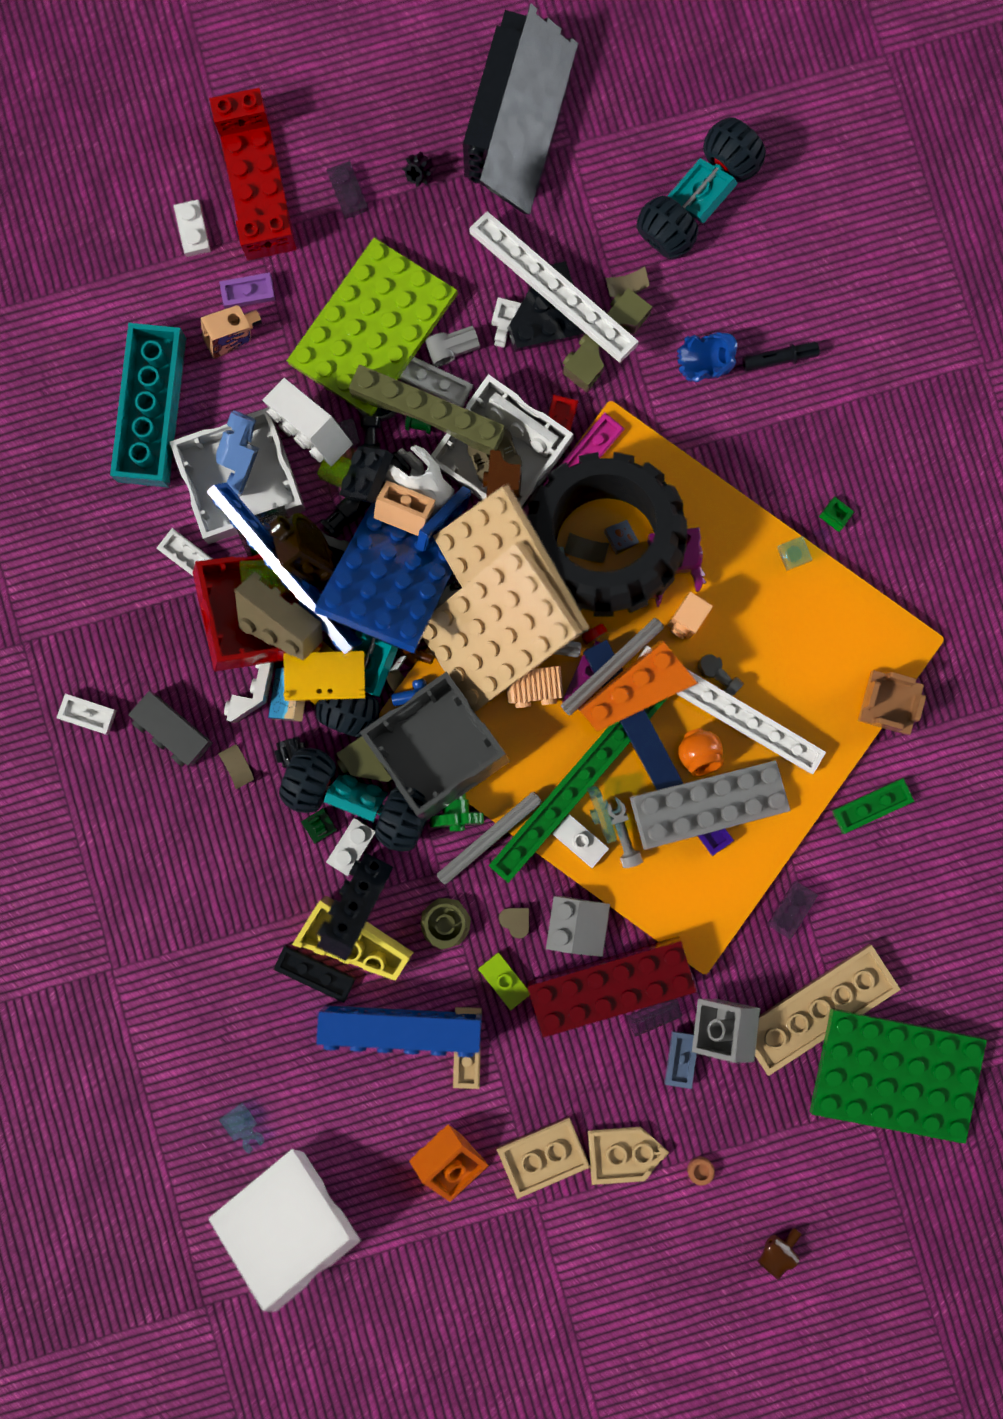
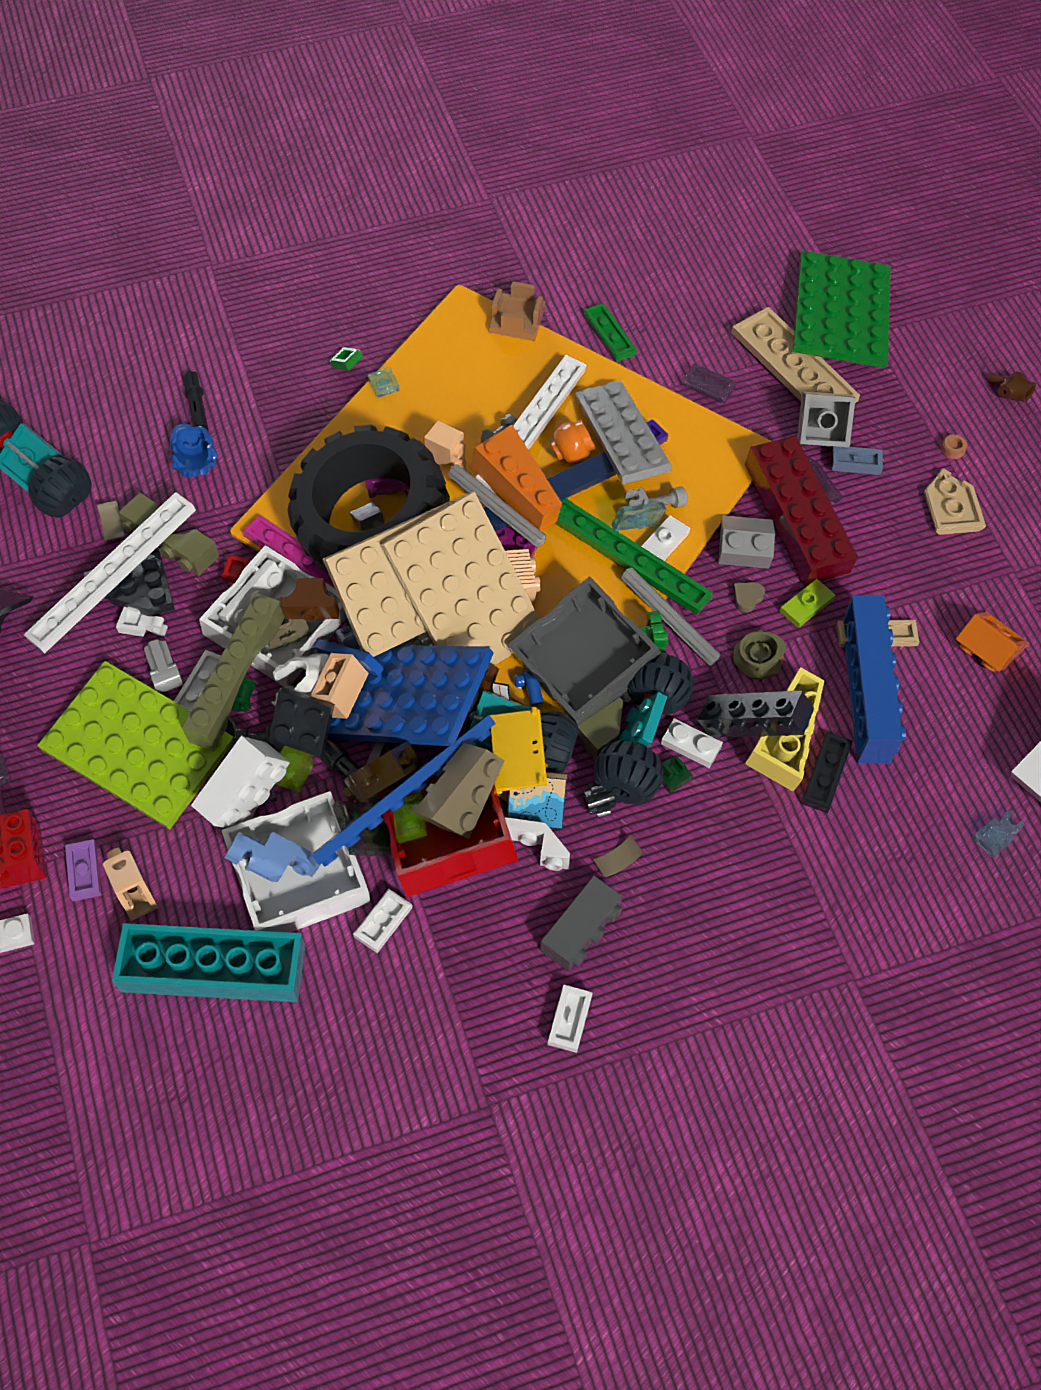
camera: 90 degrees left, 25 degrees down
(543, 1157) = (969, 567): tan tile -> none

